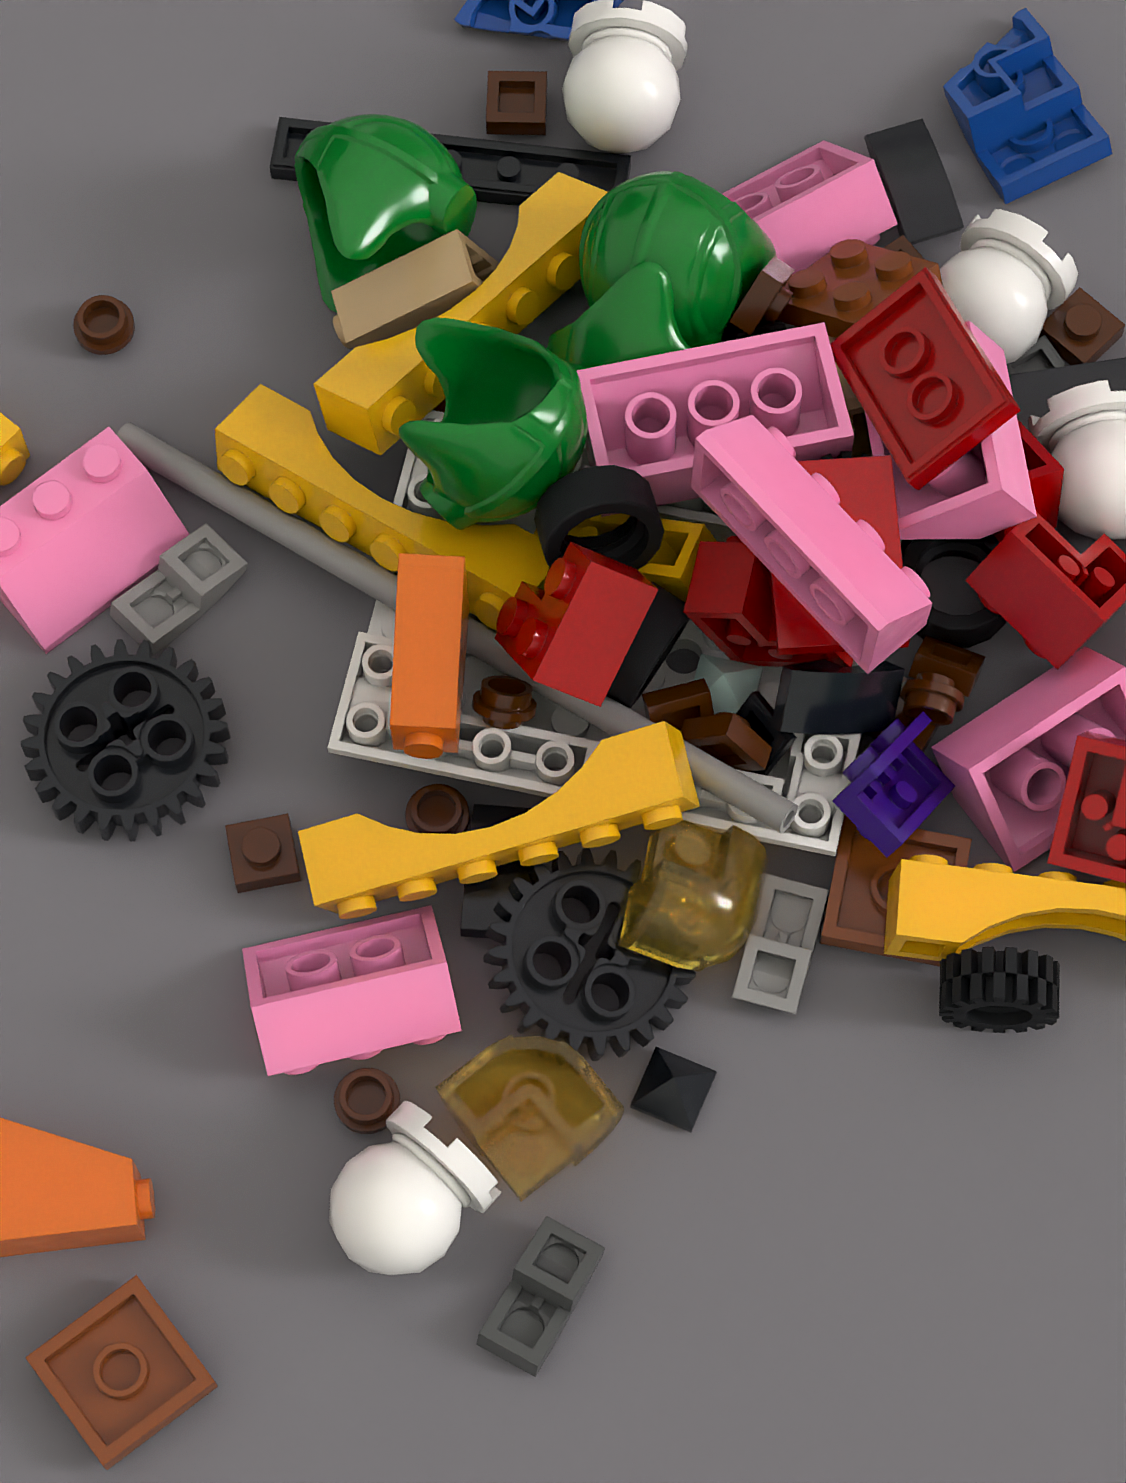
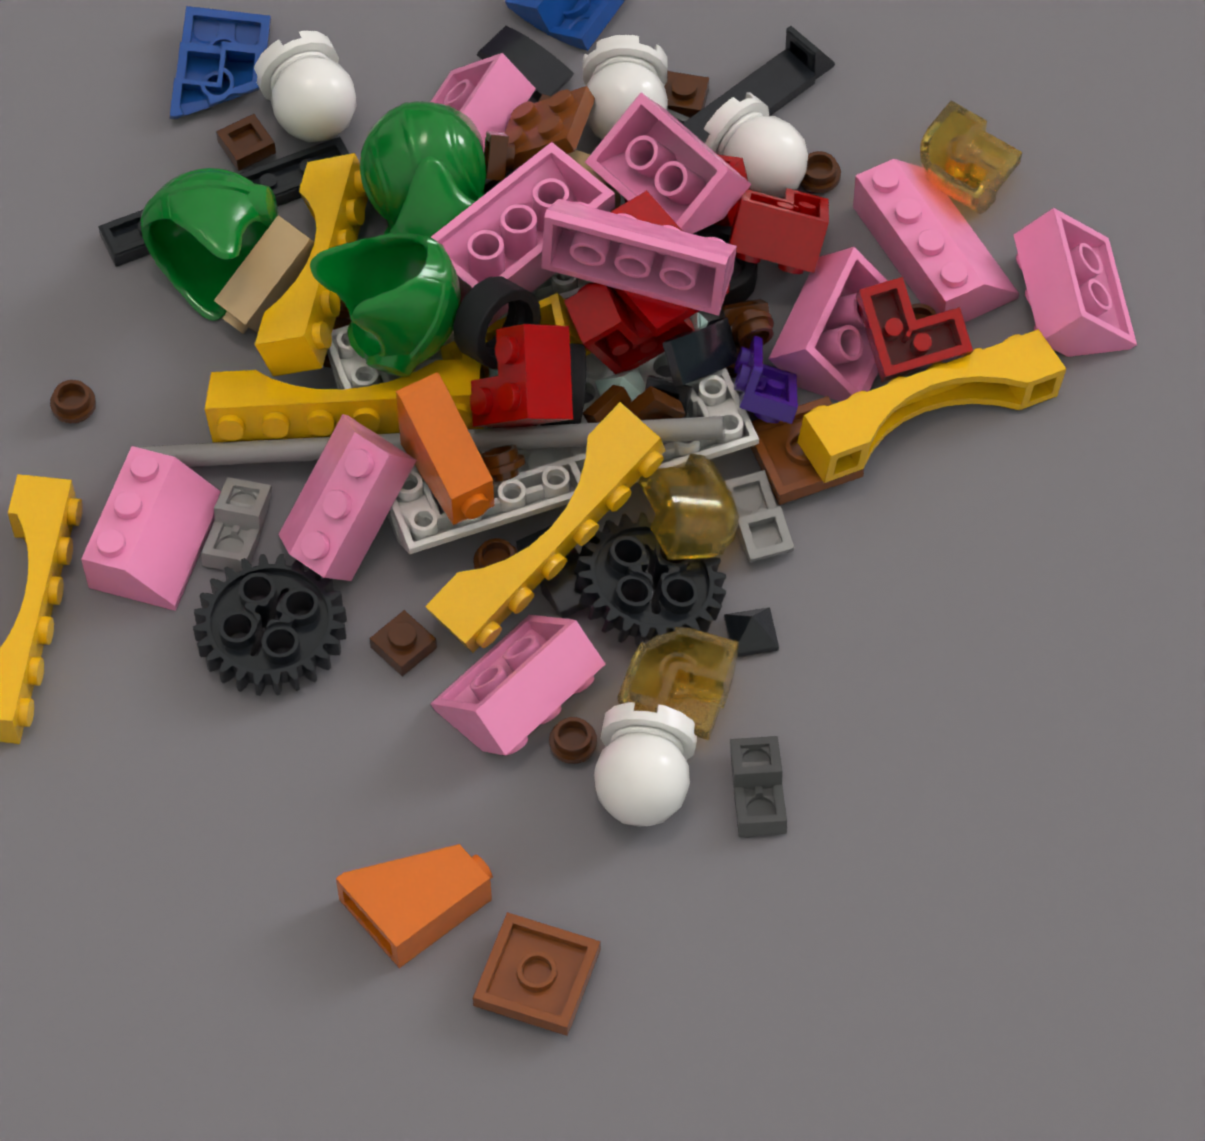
camera: 35 degrees left, 10 degrees down
(295, 642) = (345, 500): none -> bright pink slope
(923, 379) = (635, 139): red tile -> none
(999, 989) = (906, 463): black tyre -> none

